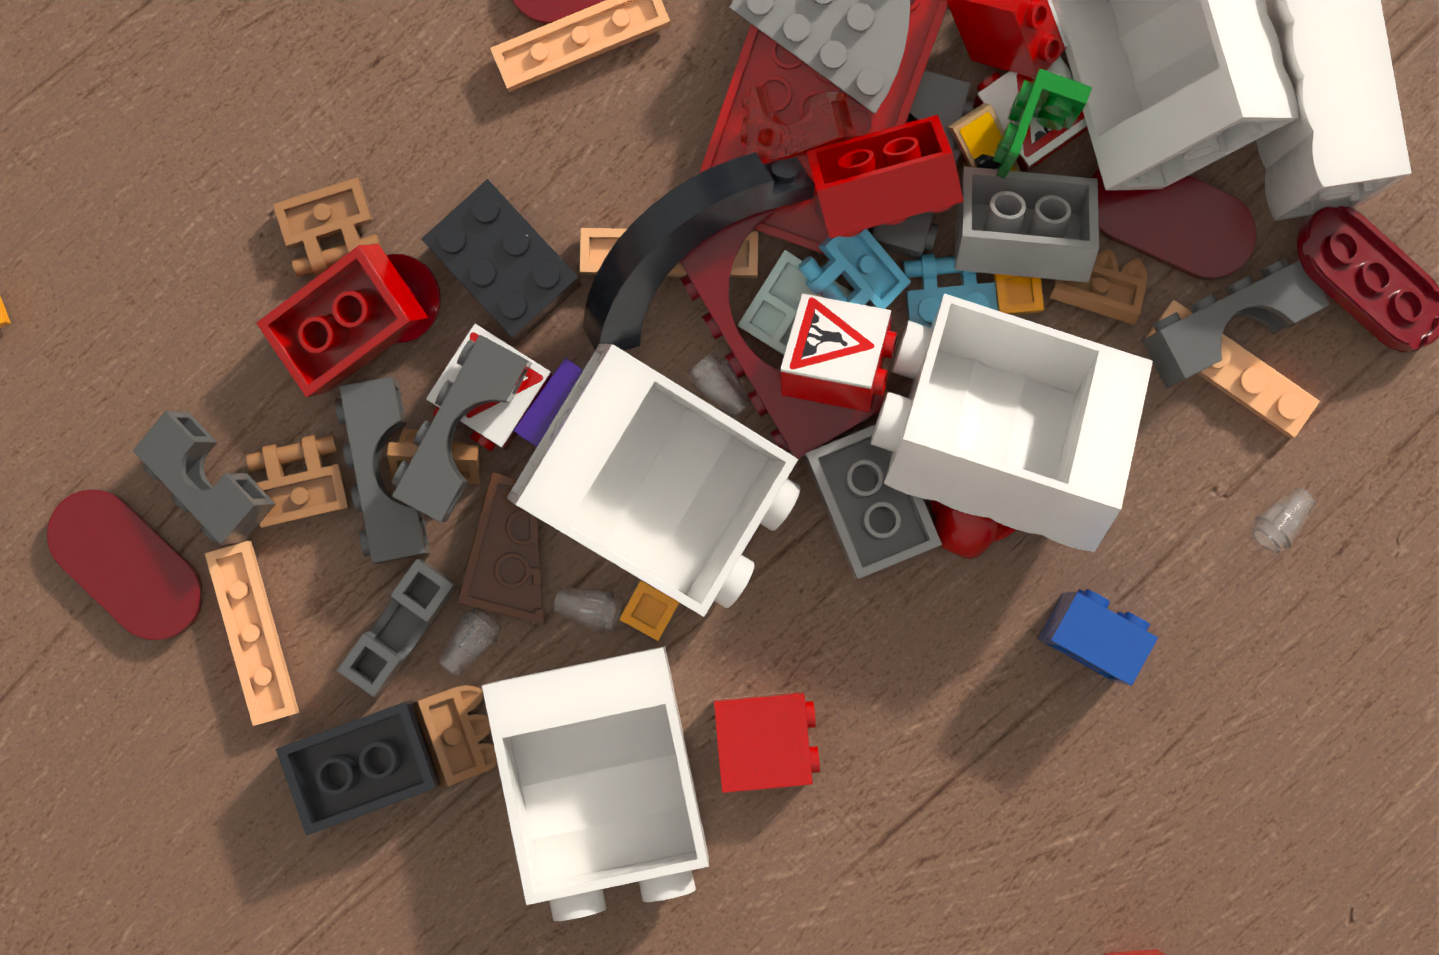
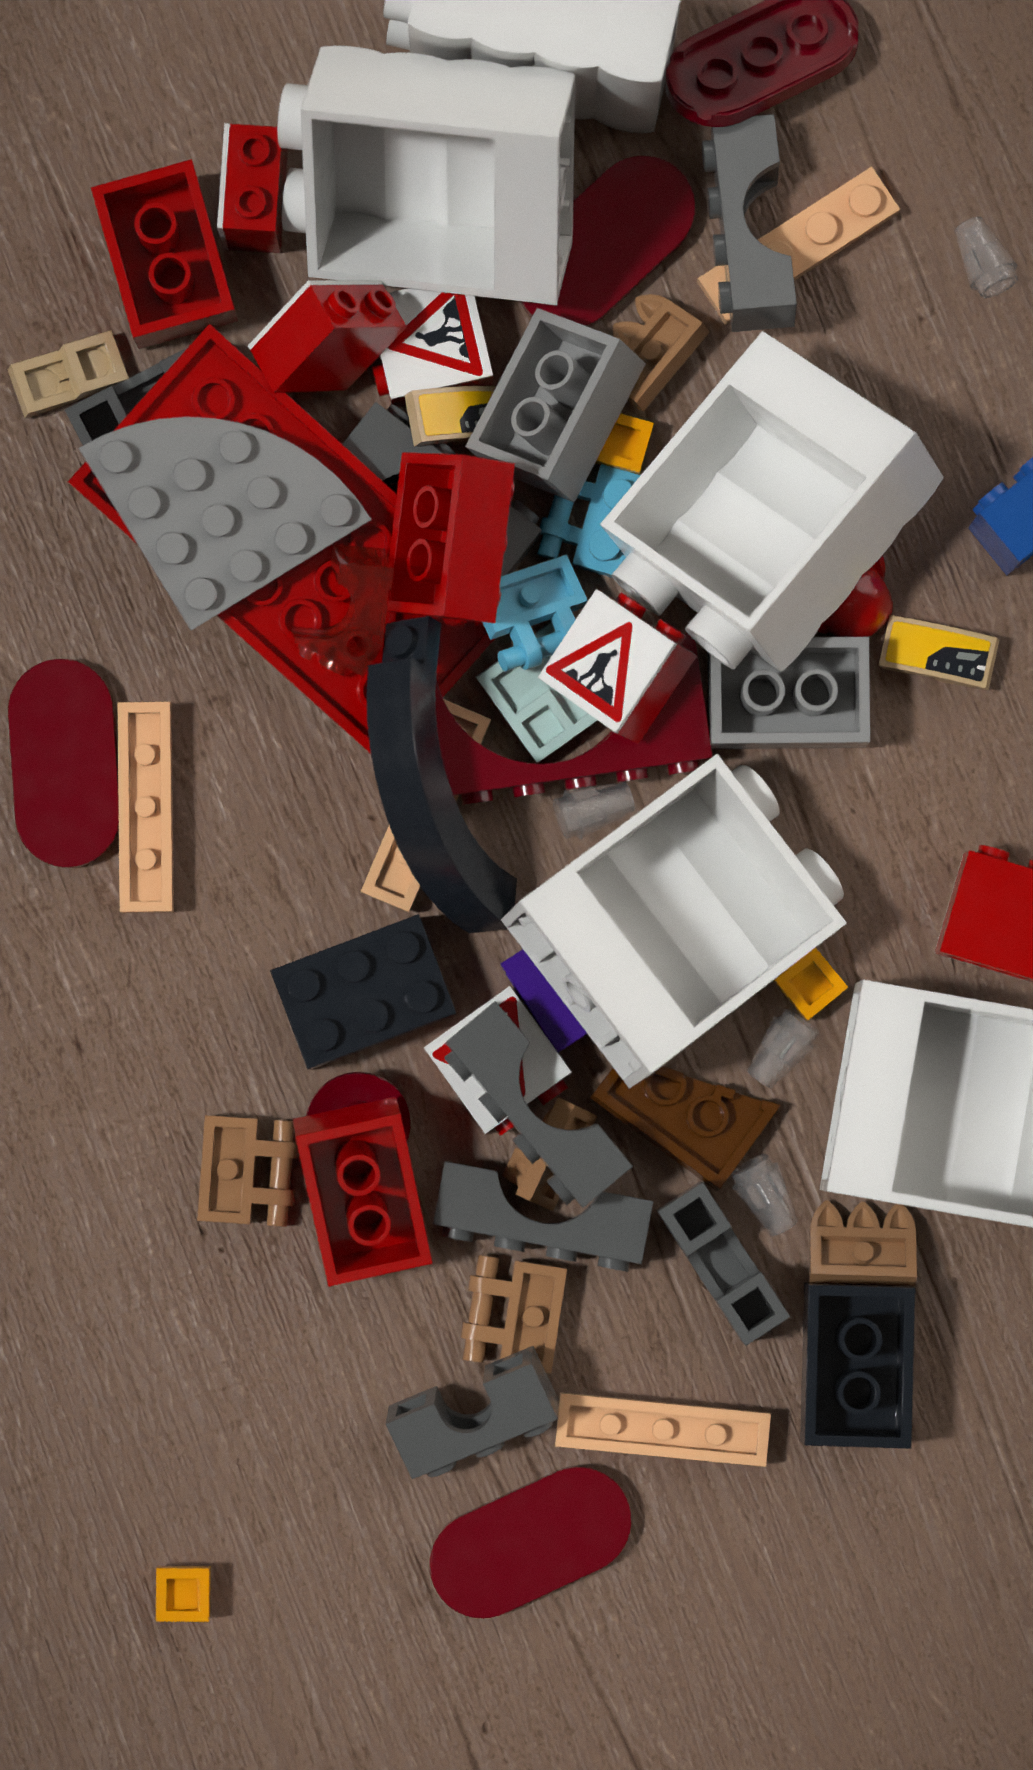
camera: 70 degrees left, 0 degrees up
(954, 608) = (939, 652): none -> slope
(1048, 98) = (443, 324): green bracket -> none

